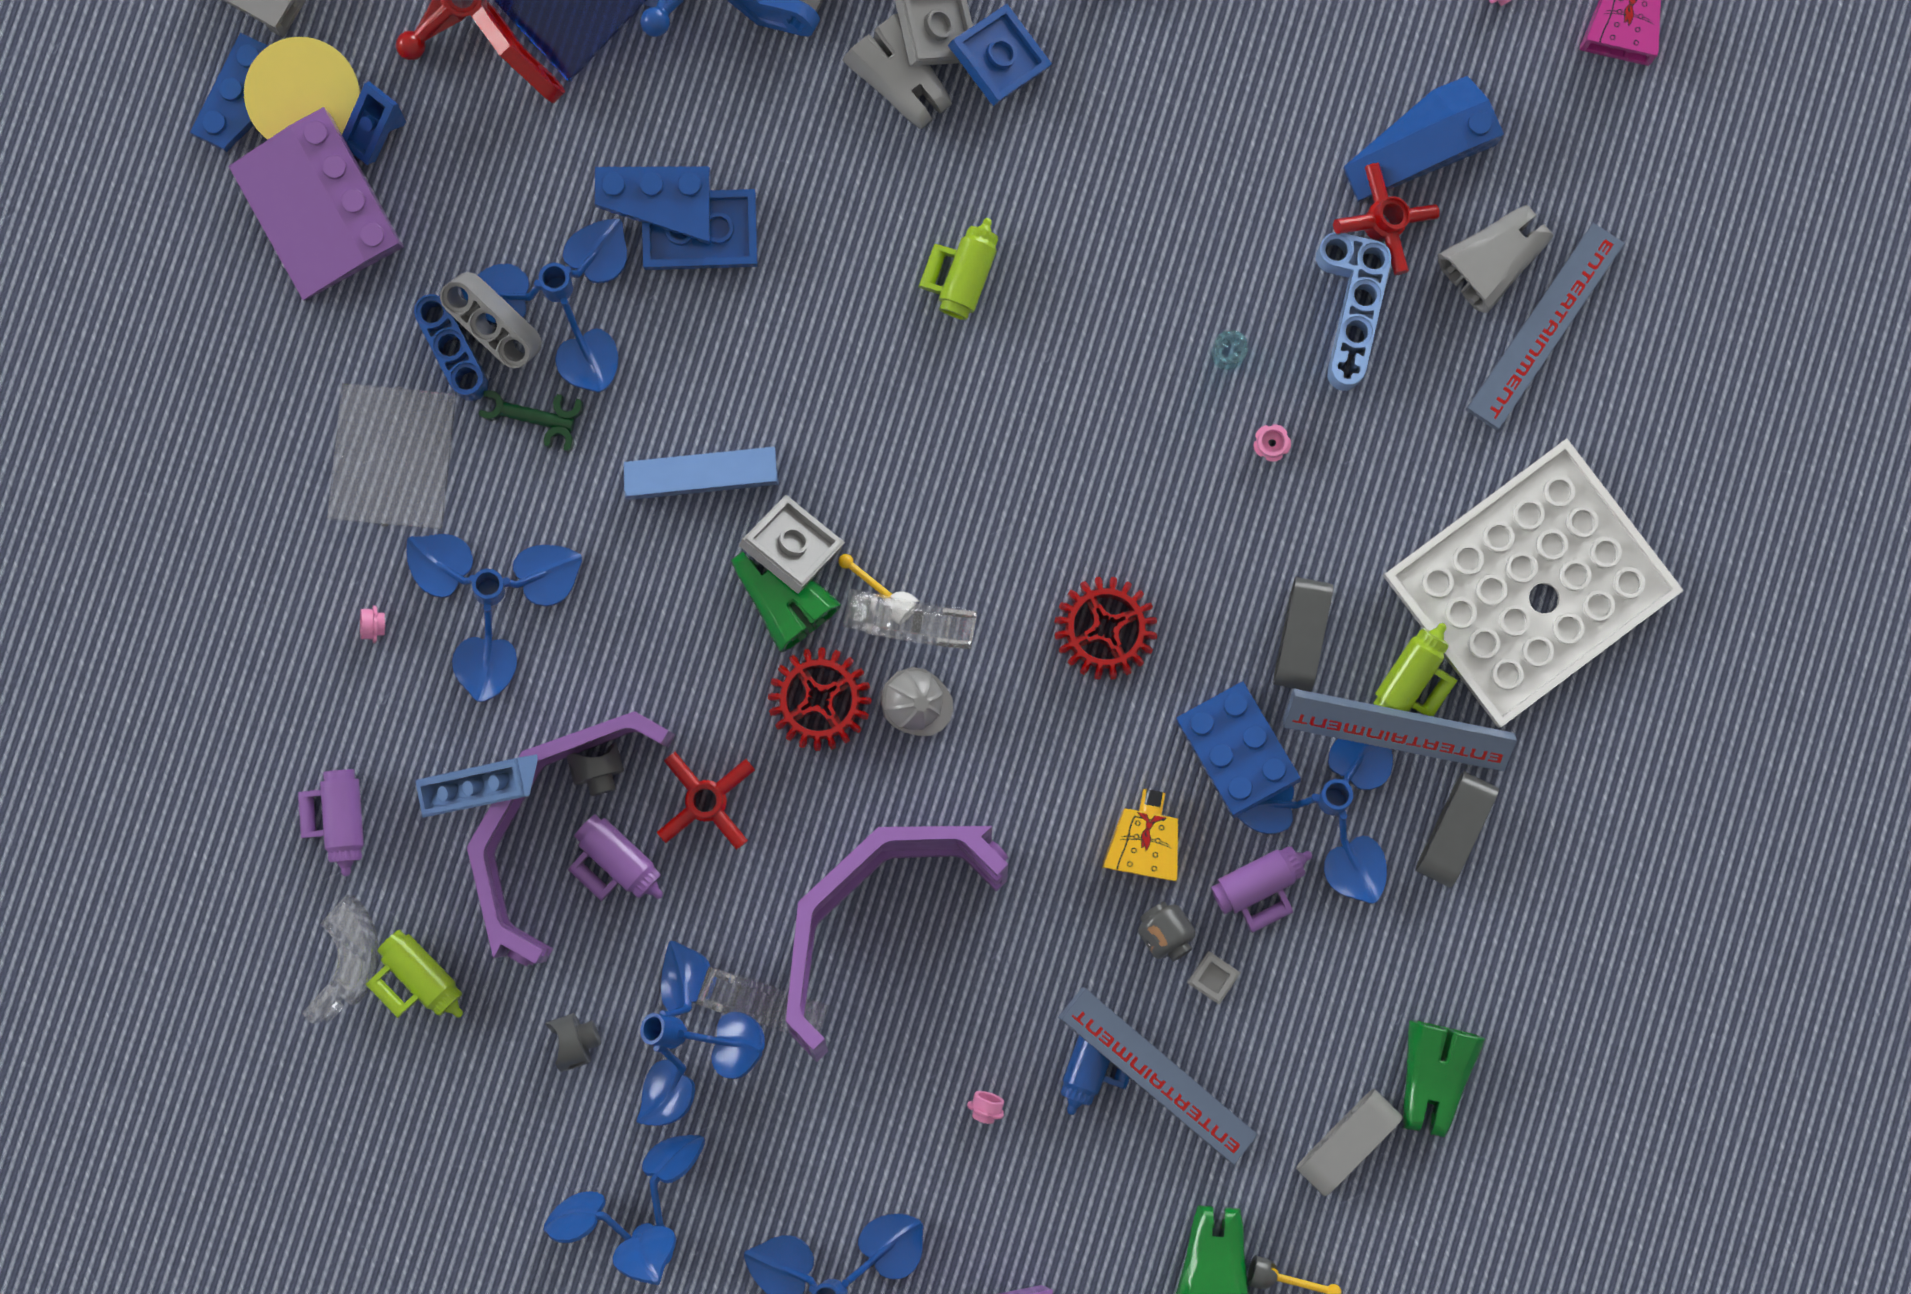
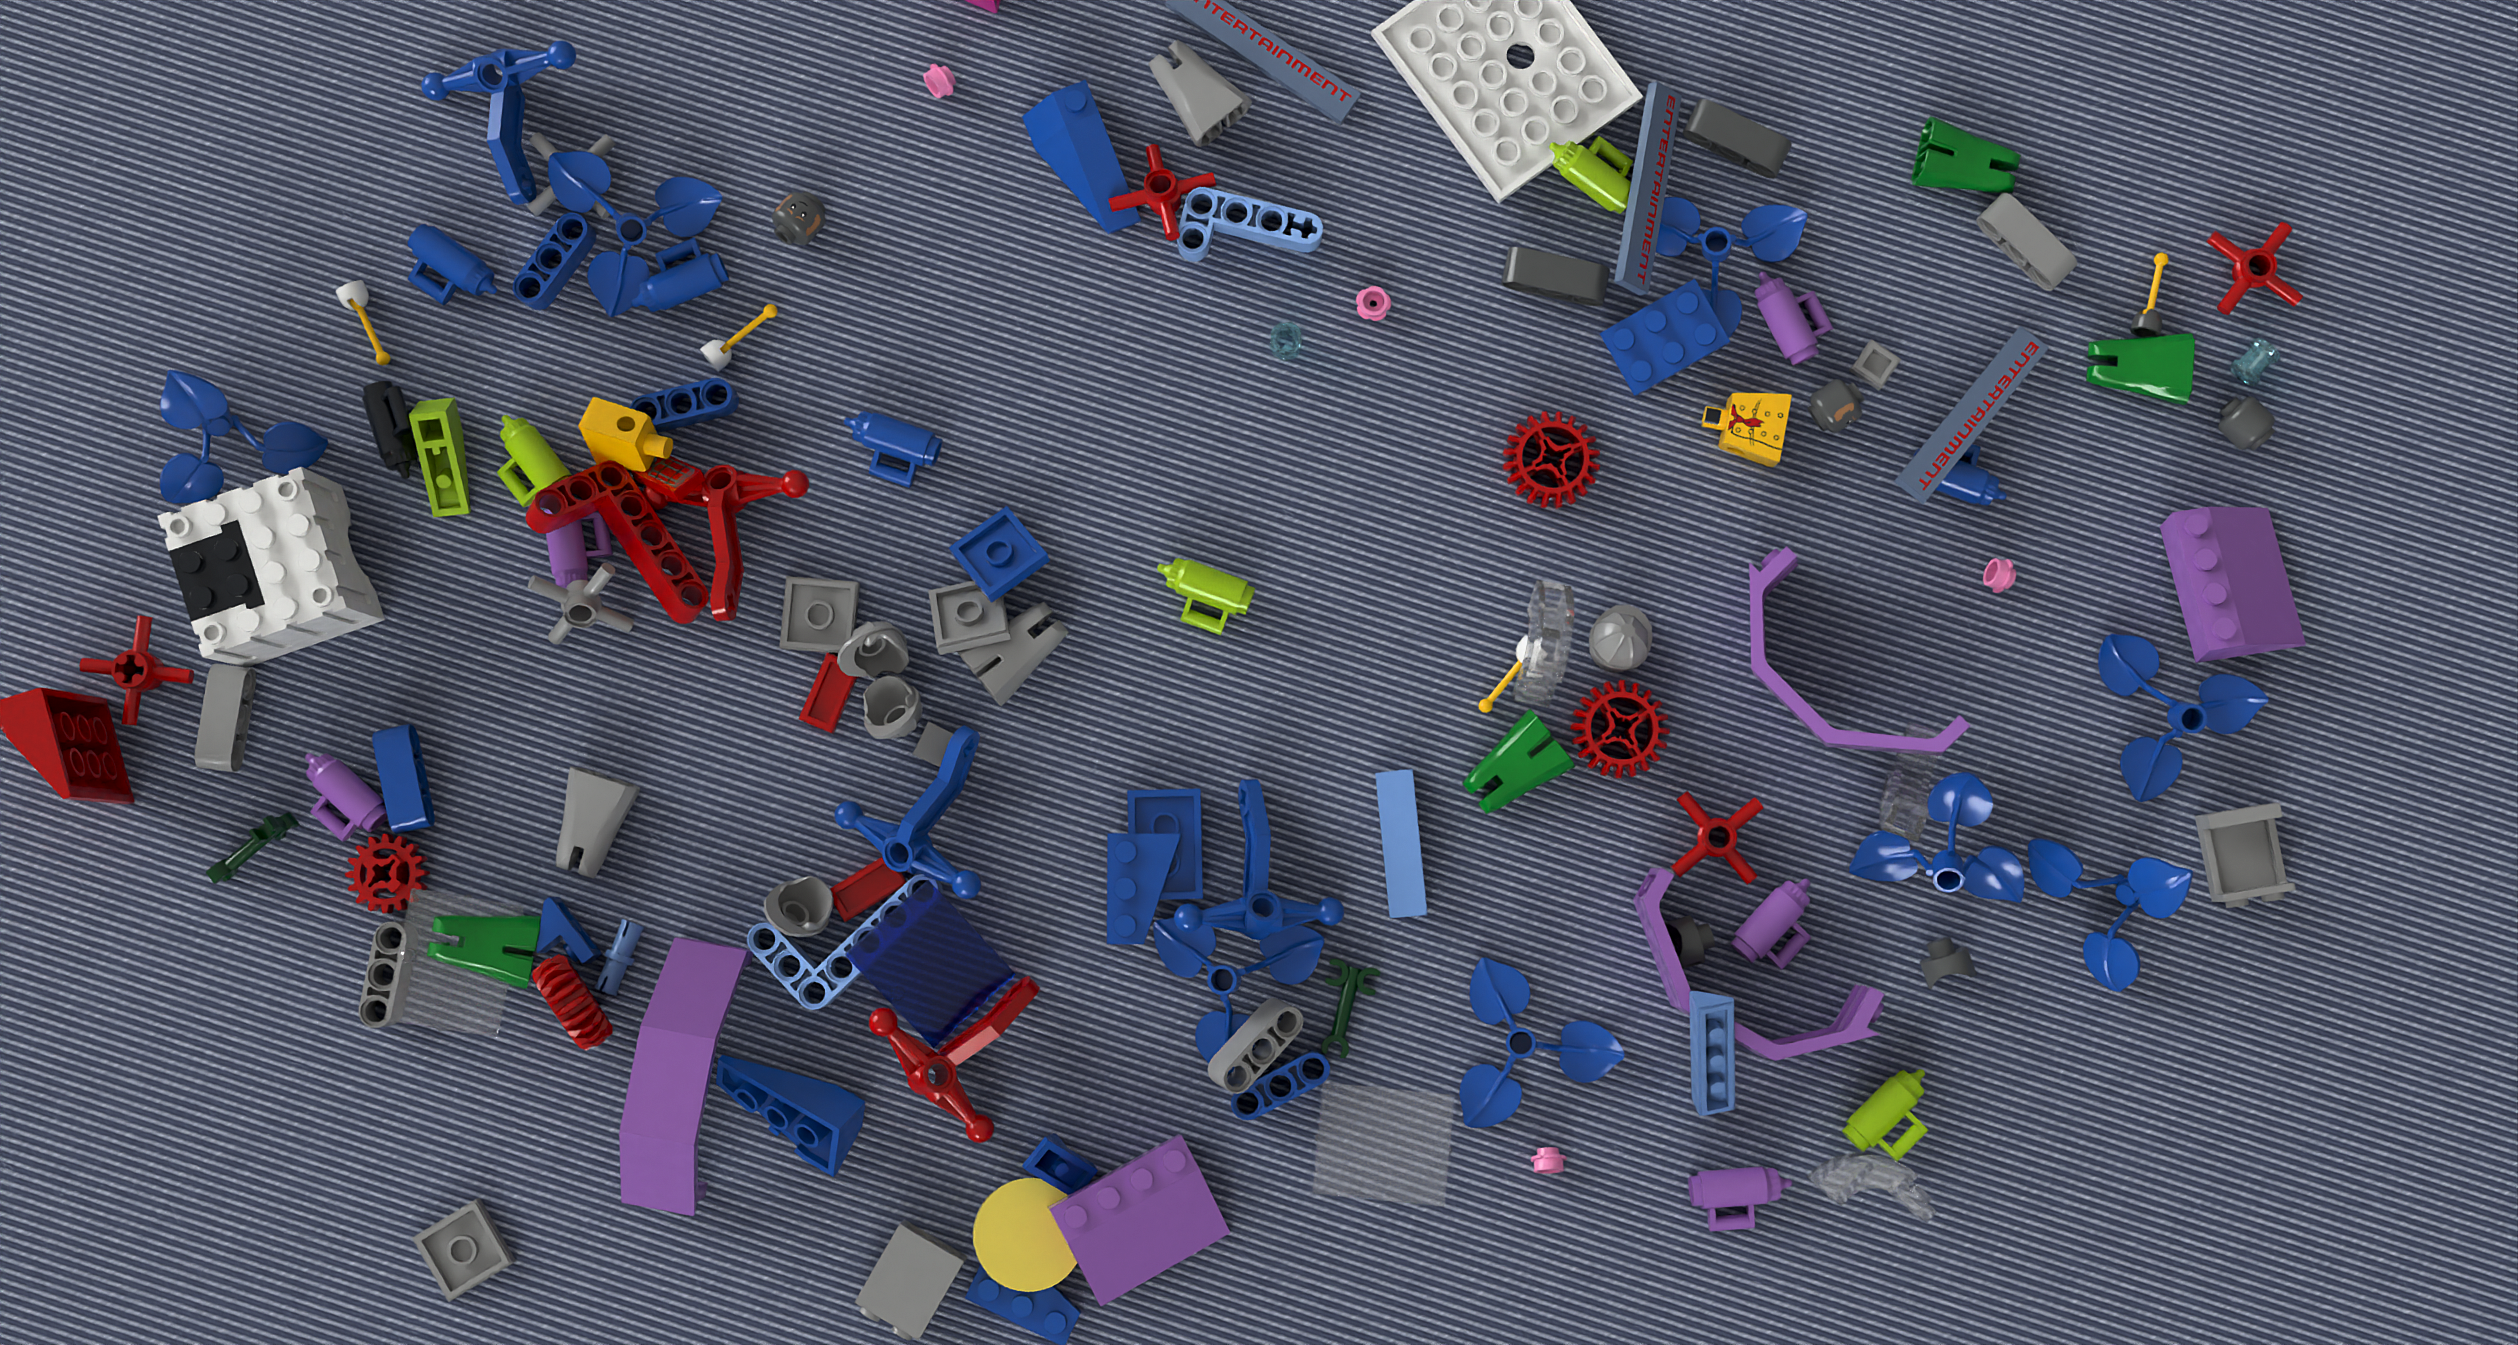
camera: 90 degrees left, 0 degrees up
(628, 344) = (1241, 913): none -> blue piece
(791, 544) = (1473, 754): light grey tile -> none

